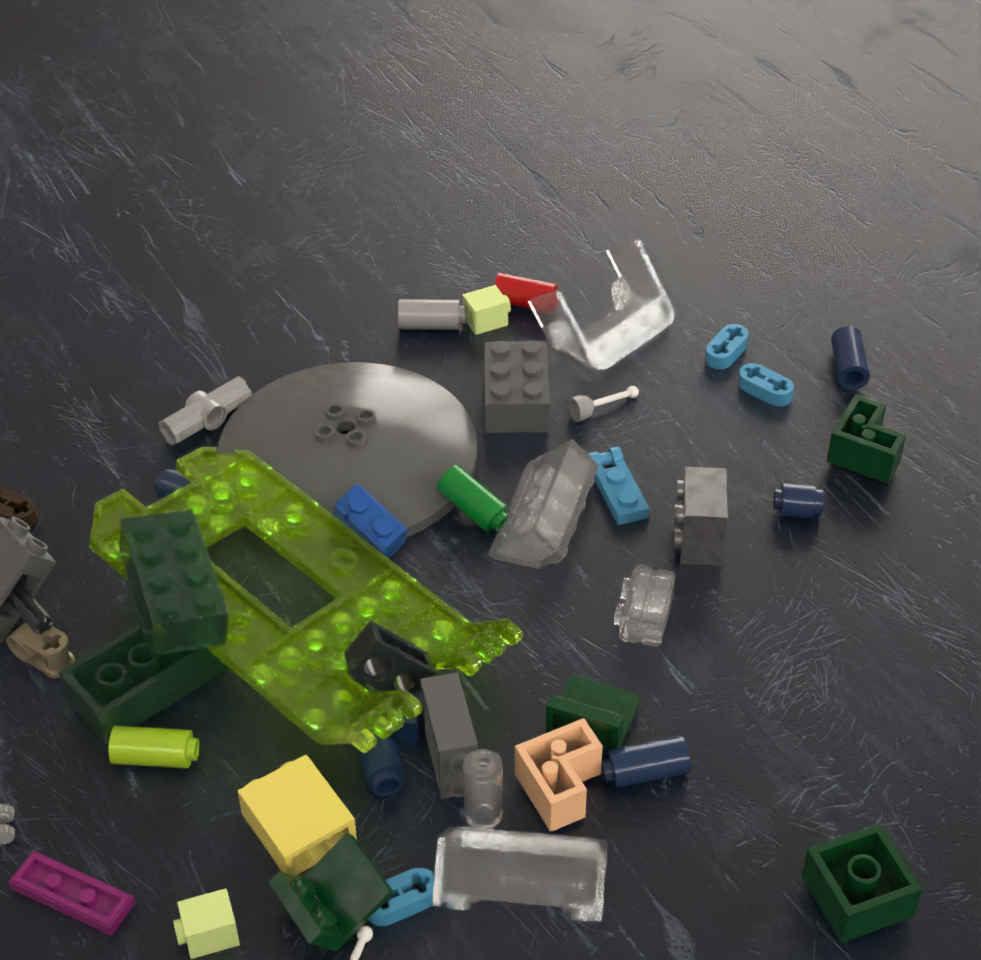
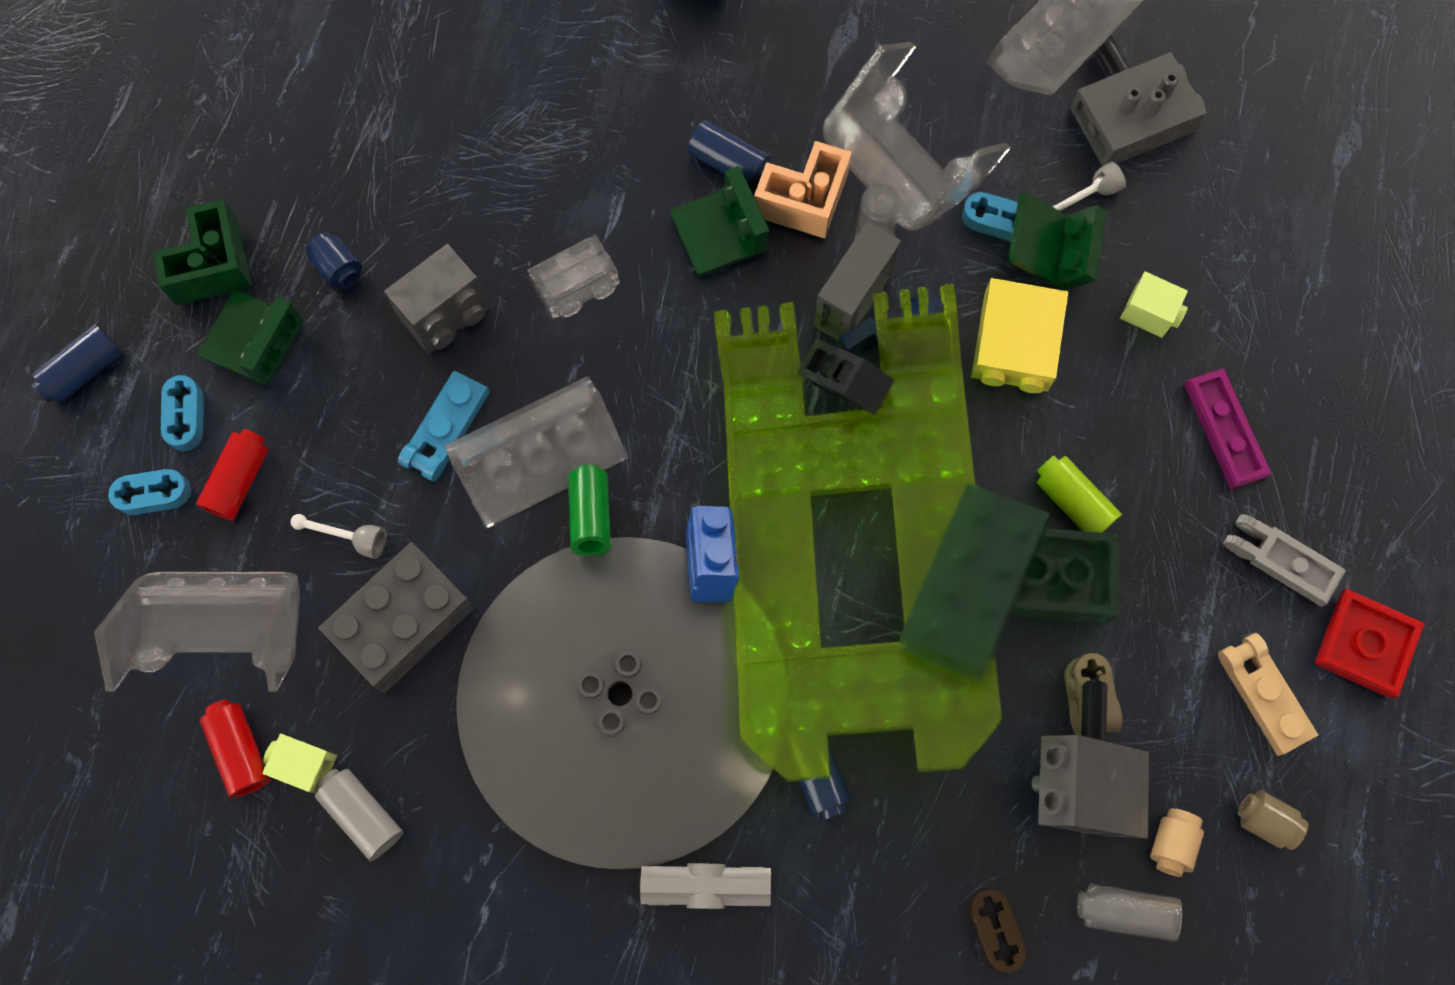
camera: 135 degrees left, 30 degrees up
(693, 376) = (233, 475): none -> red brick
(783, 436) = (251, 336): none -> dark green bracket

